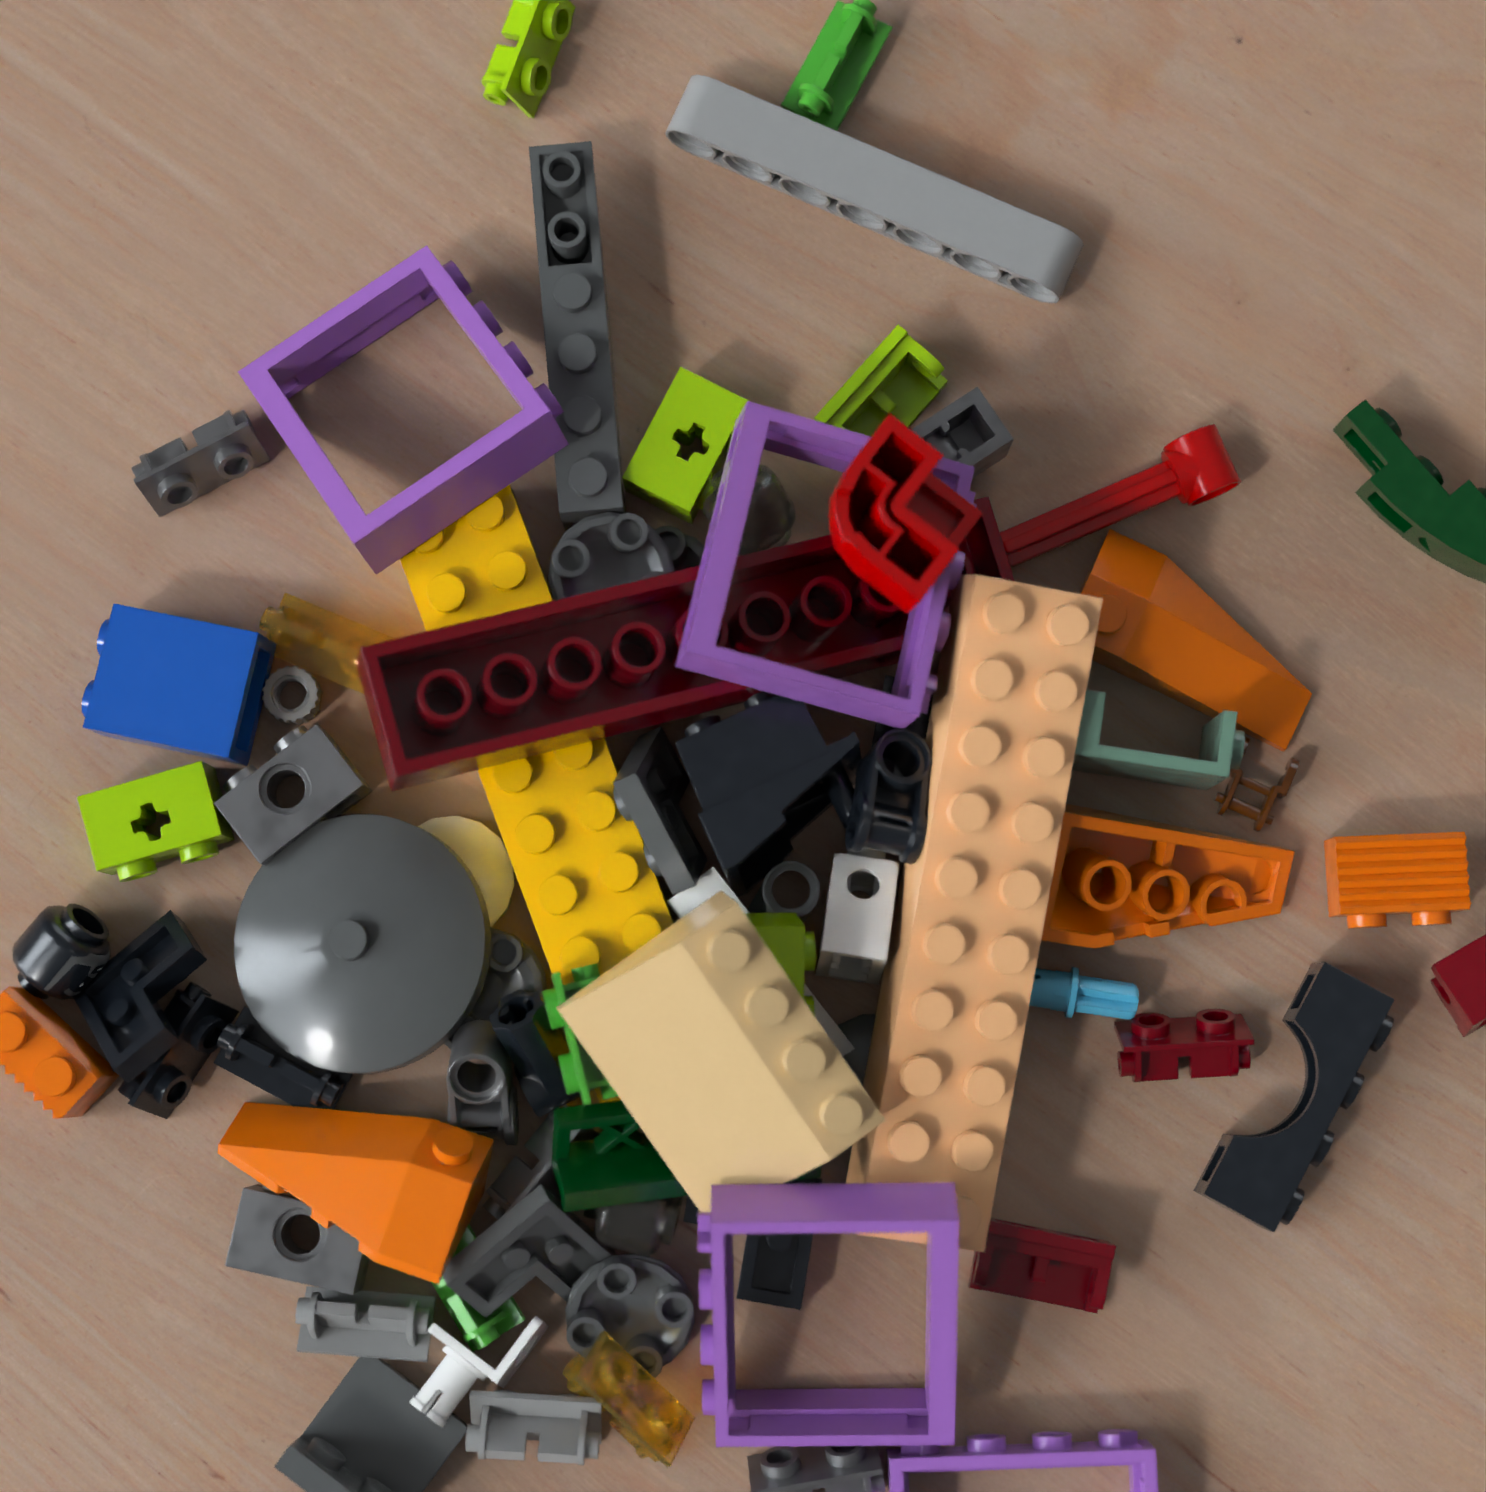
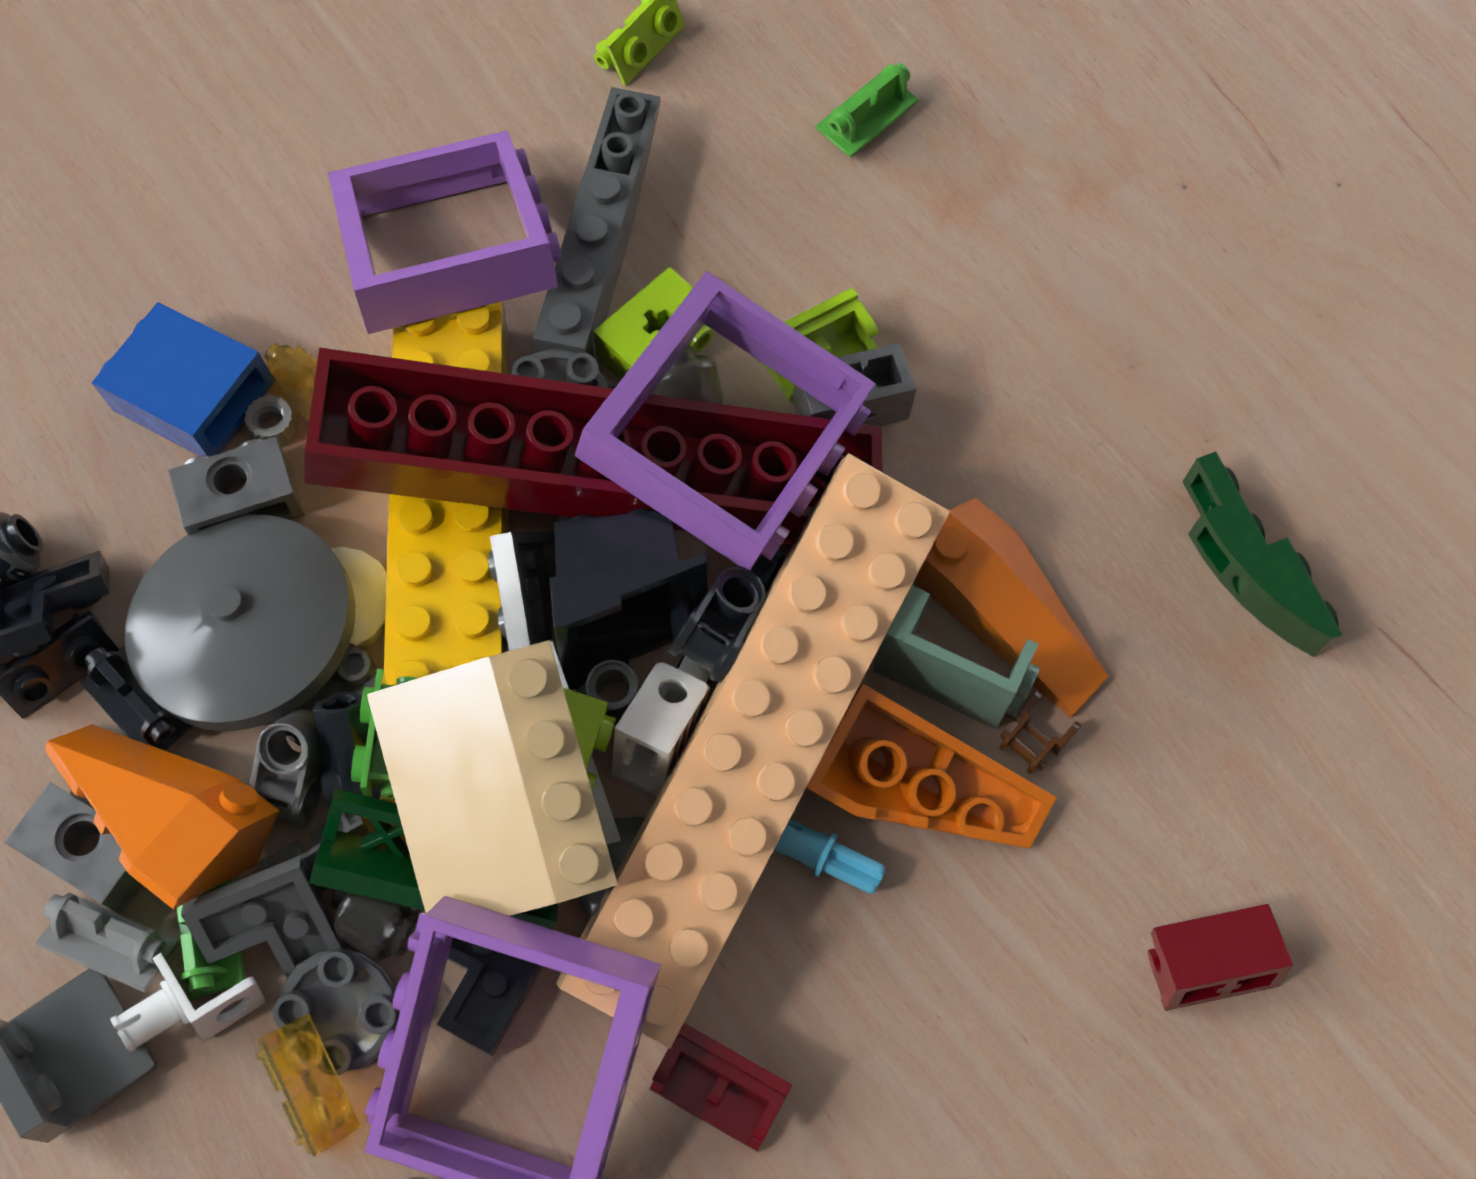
camera: 10 degrees right, 15 degrees down
(119, 817) = (116, 476): lime brick -> none
(176, 476) = (273, 237): flat silver hinge -> none
(563, 1424) = (230, 1084): light grey hinge -> none
(874, 189) = (870, 201): light grey beam -> none
(895, 517) = (793, 380): red brick -> none
(1191, 469) = (1058, 471): red axle -> none
(1212, 1039) = (933, 934): dark red hinge -> none
(1335, 1026) = (946, 1063): black arch -> none
(1397, 876) = (1141, 846): orange brick -> none

